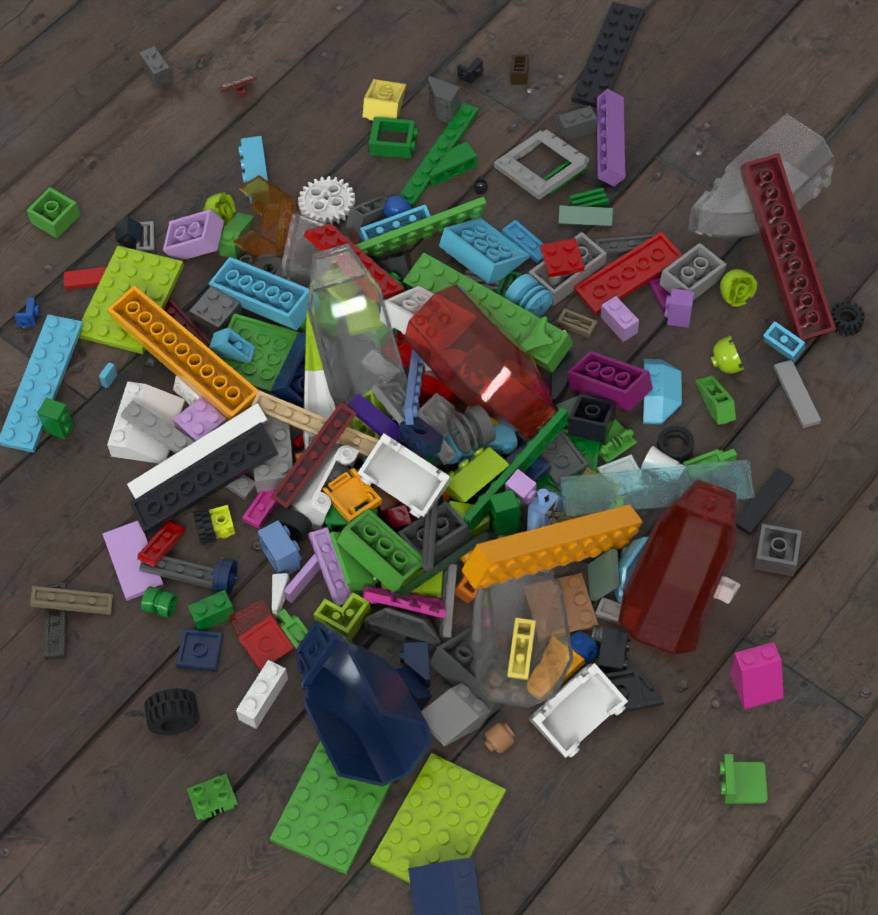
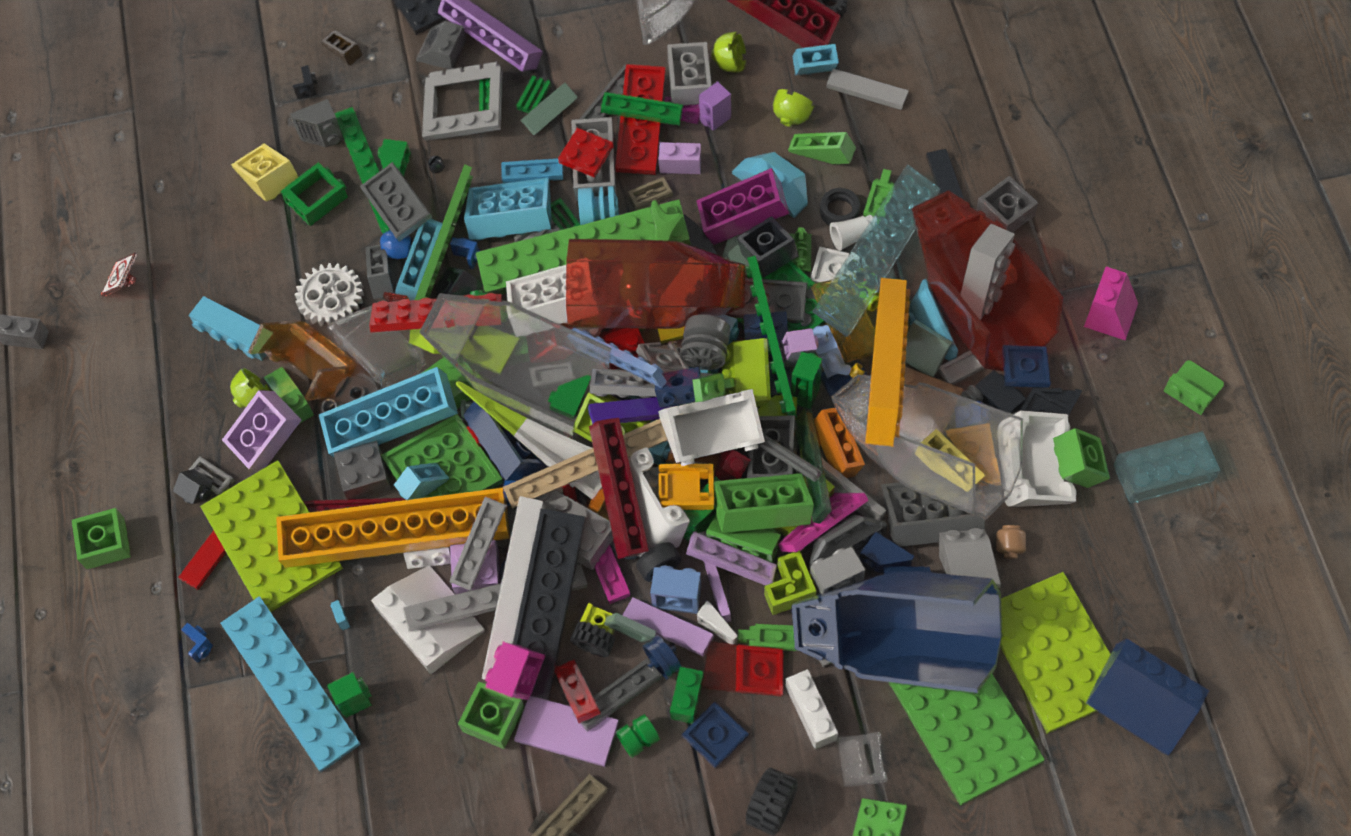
camera: 50 degrees left, 5 degrees up
(105, 507) = (491, 716): none -> bright green brick
(137, 492) = (514, 670): none -> dark pink brick
(209, 407) = (478, 543): none -> light grey tile
(230, 542) = (629, 627): none -> sand green tile
(249, 748) = (854, 761): none -> clear plate
(253, 566) = (669, 627): none -> lavender tile
(363, 381) = (569, 396): none -> green slope
(374, 636) = (836, 571): none -> light grey brick
(422, 182) = (396, 202): none -> dark grey tile
(430, 246) = (465, 248): none -> blue bracket
(435, 454) = (711, 387): none -> bright green hinge
(604, 737) = (1081, 458): none -> bright green brick
(634, 266) = (642, 108): none -> green tile
(649, 650) = (1026, 366): none -> dark blue tile
(653, 804) = (1166, 467): none -> clear light blue brick
(690, 564) = (986, 269): none -> light grey brick

